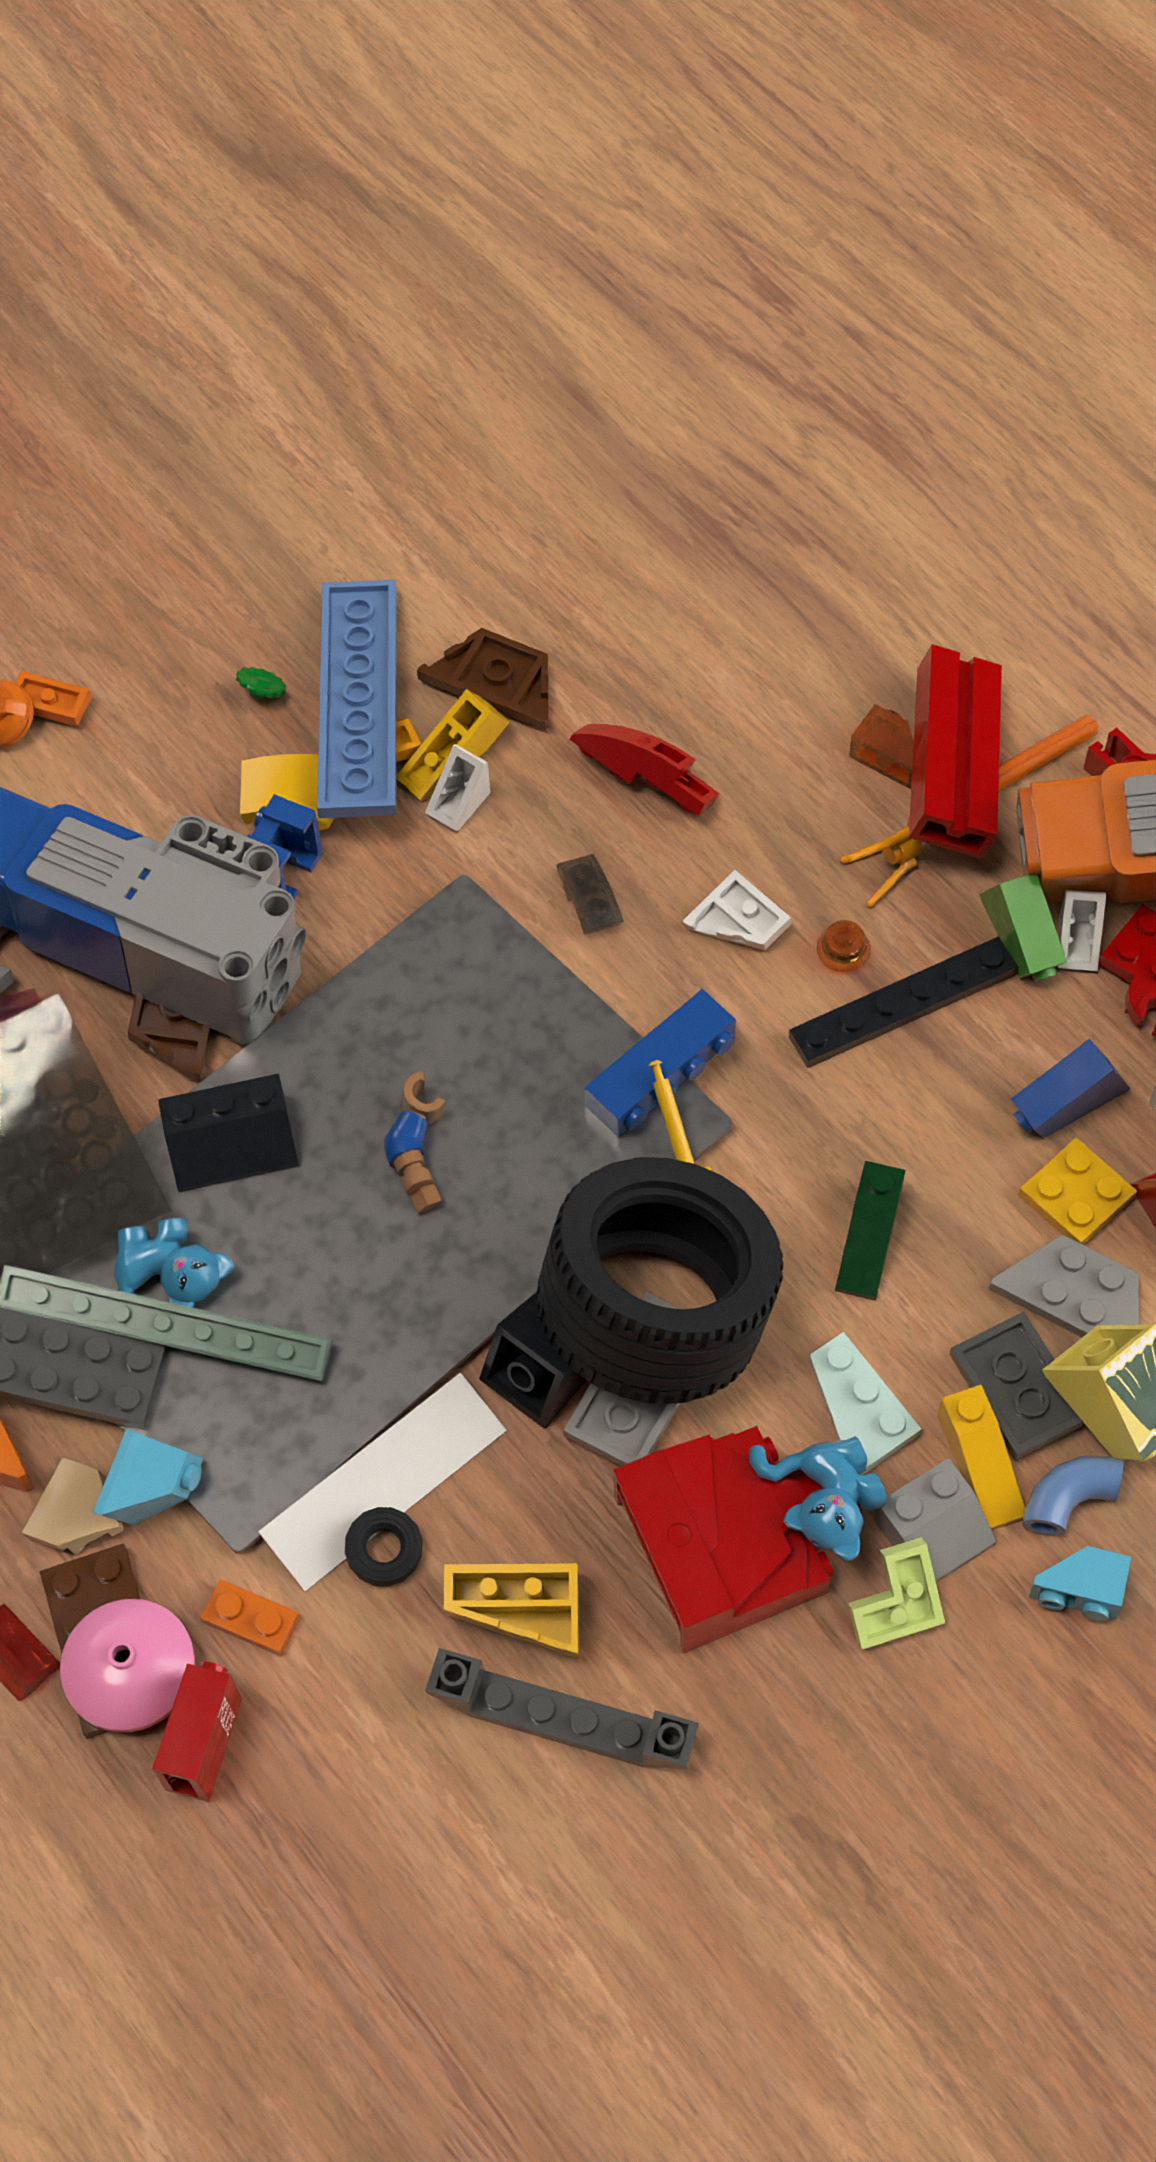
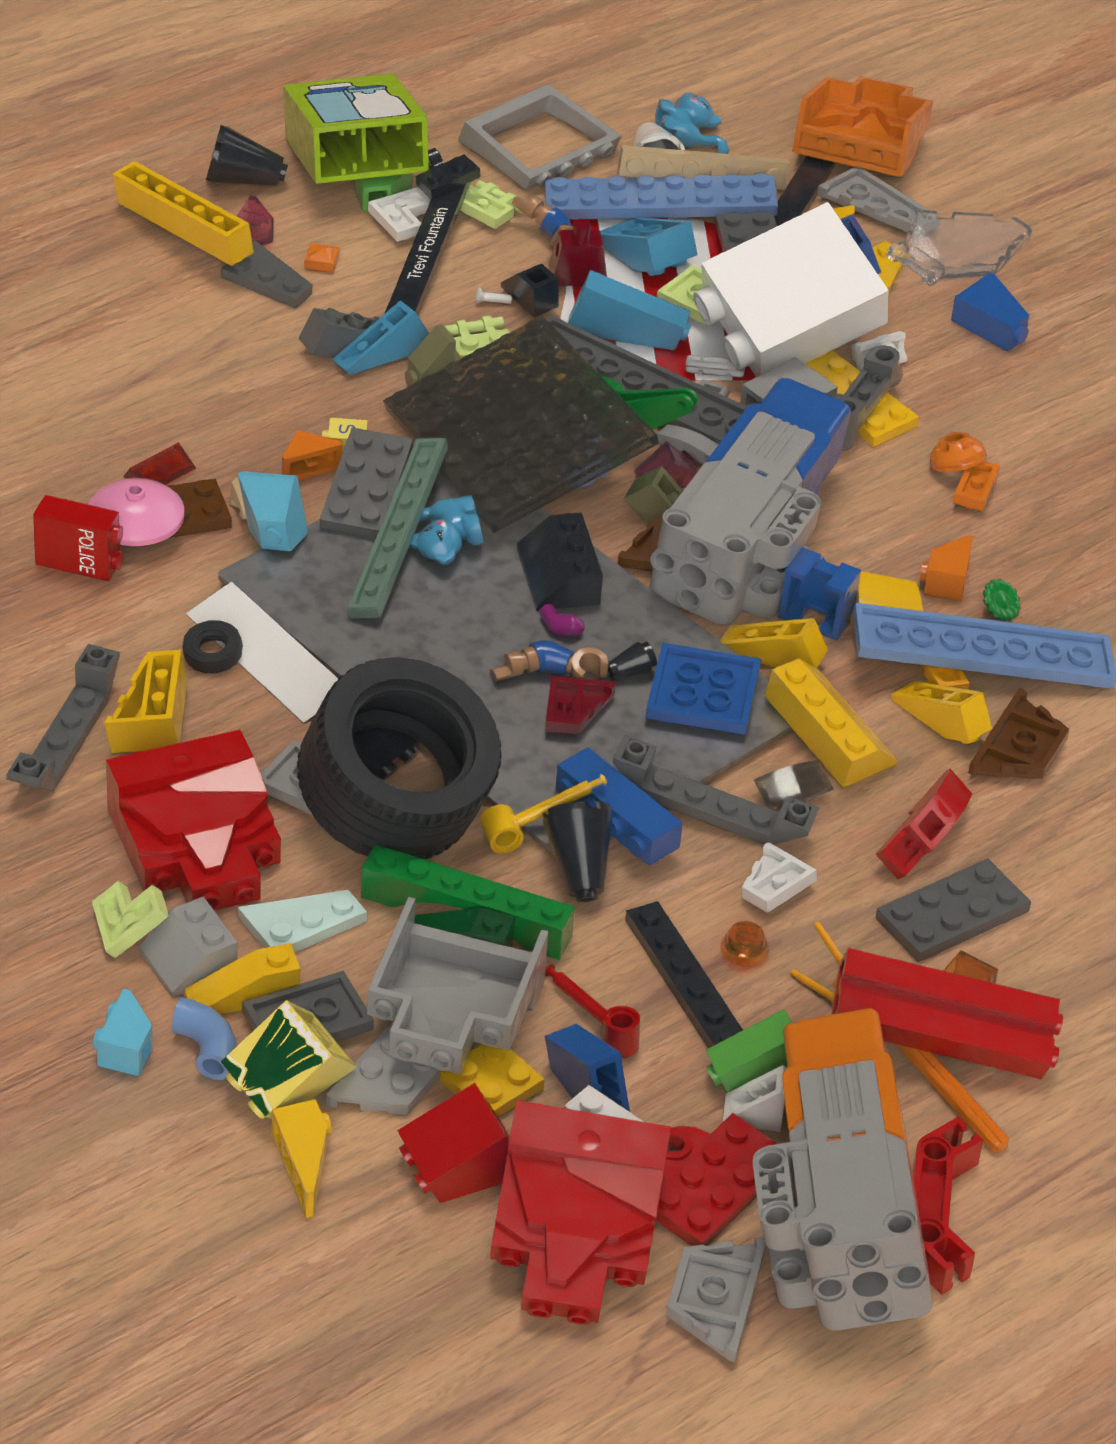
camera: 85 degrees right, 20 degrees down
(99, 1021) = (653, 494): none -> olive slope
(210, 728) = (947, 569): none -> orange slope
(250, 1617) = (167, 582): orange plate -> none
(335, 1133) = (561, 624): none -> magenta arm
(351, 910) = (778, 641): none -> yellow slope
(404, 1049) = (633, 661): none -> black cone
(446, 978) = (703, 688): none -> blue plate
(459, 789) = (898, 712): white slope -> none
(483, 1115) = (575, 703): none -> dark red wing
(494, 854) = (827, 723): none -> yellow slope
(630, 978) = (710, 804): none -> dark grey slope
(735, 1096) = (580, 846): none -> black cone
(760, 753) = (952, 910): none -> dark grey plate
(822, 1221) = (394, 876): none -> green arch
(831, 1513) = (191, 853): dark azure animal -> none
(988, 1072) = (618, 1023): none -> red piece
(991, 1220) = (452, 992): none -> light grey panel

